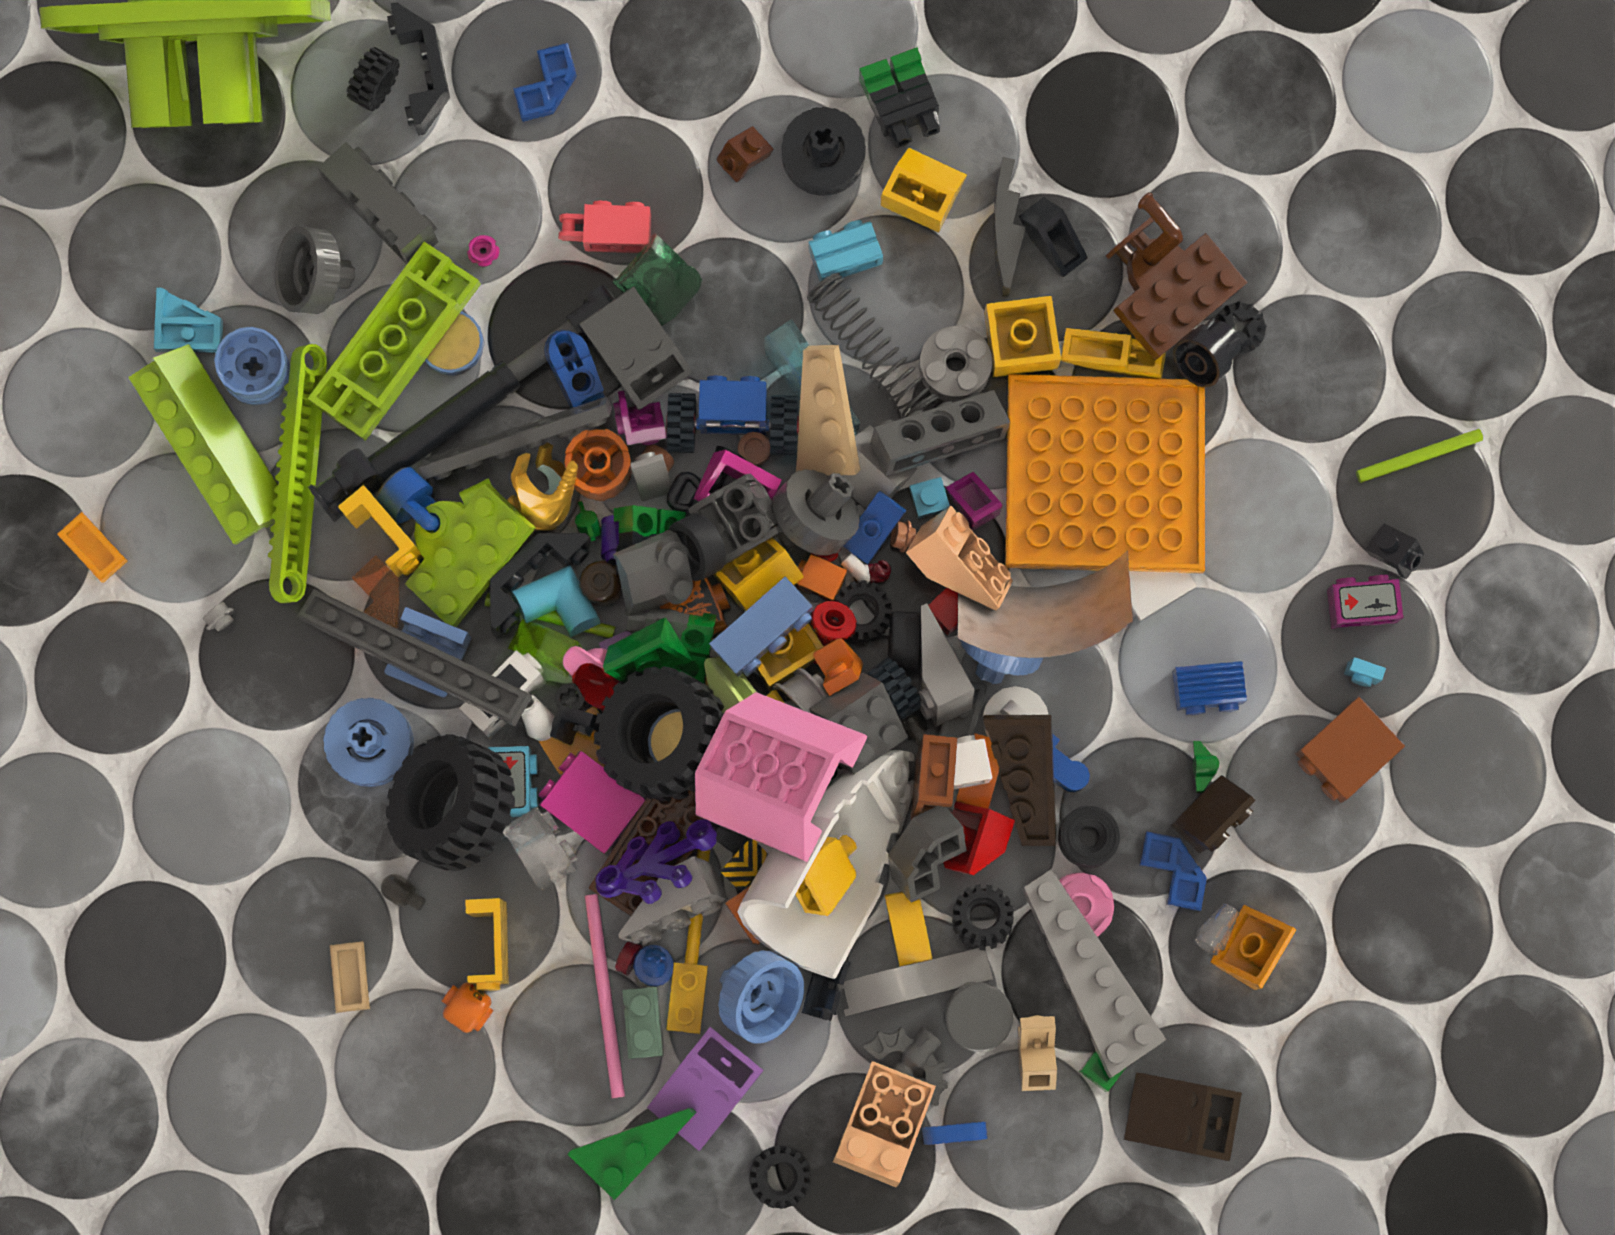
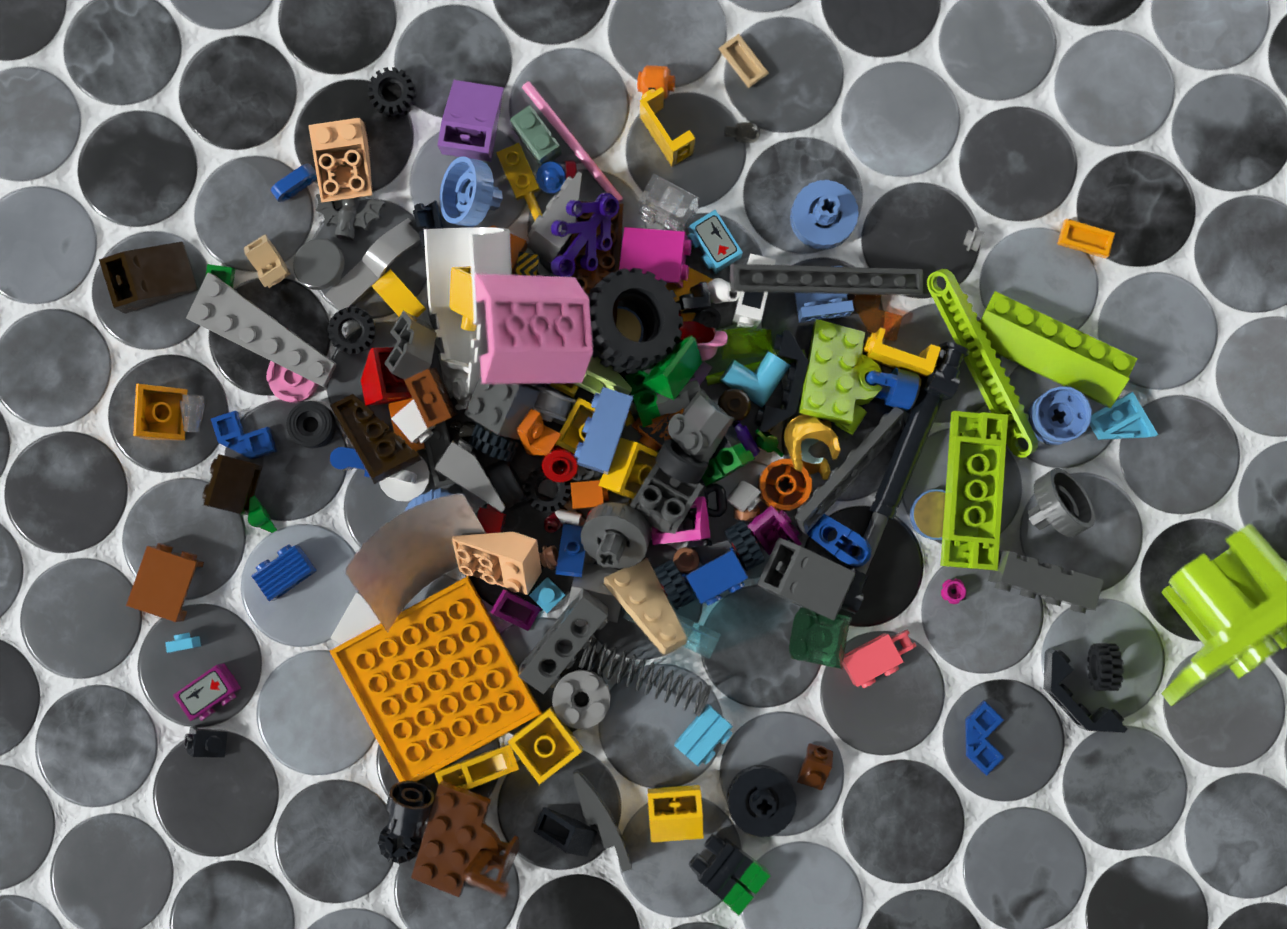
camera: 150 degrees right, 5 degrees up
(477, 814) = (723, 206): black tyre -> none
(621, 1157) = (500, 47): green wing -> none
(1419, 455) = (225, 821): lime bar -> none

